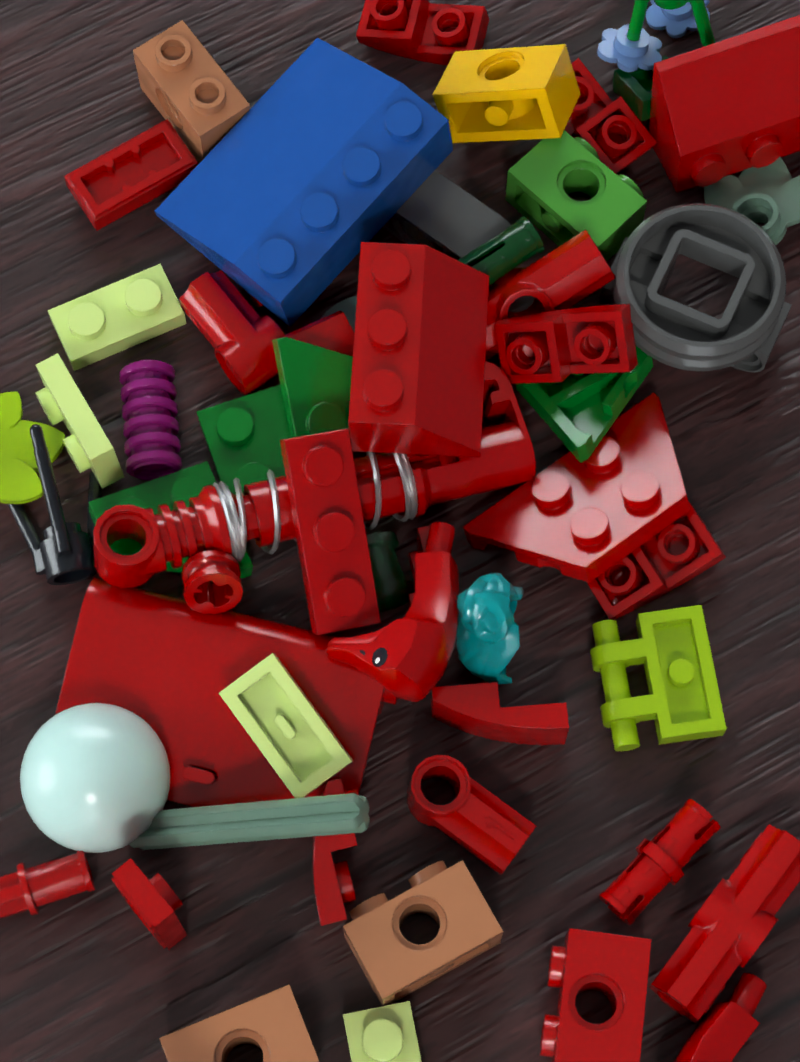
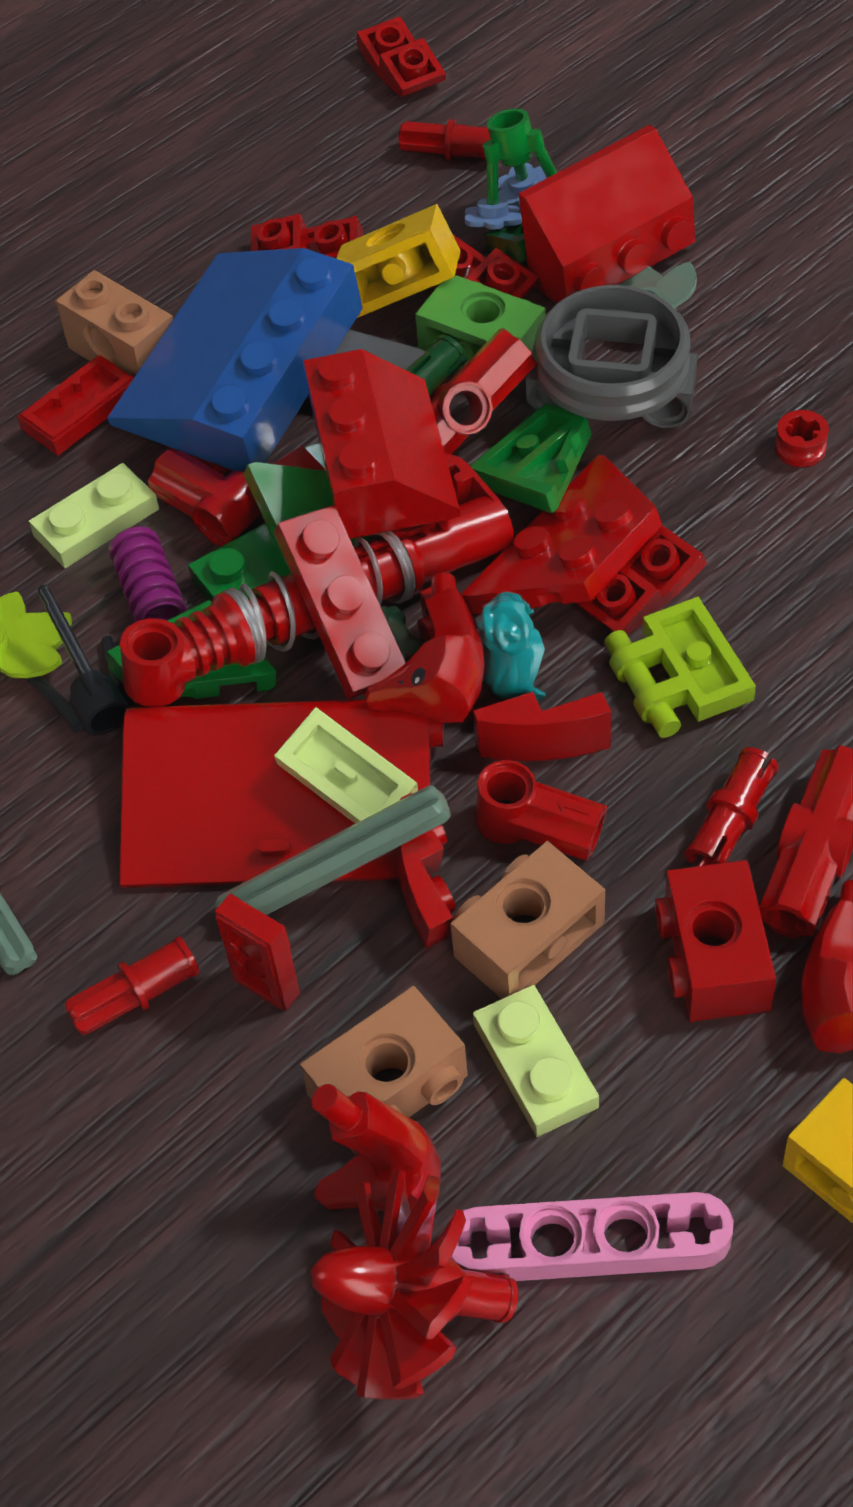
camera: 10 degrees left, 15 degrees down
(88, 442) = (86, 595): yellowish green plate -> none
(94, 777) = (172, 869): light aqua piece -> none
(215, 567) = (231, 687): red bush -> none
(566, 342) = (509, 420): red slope -> none

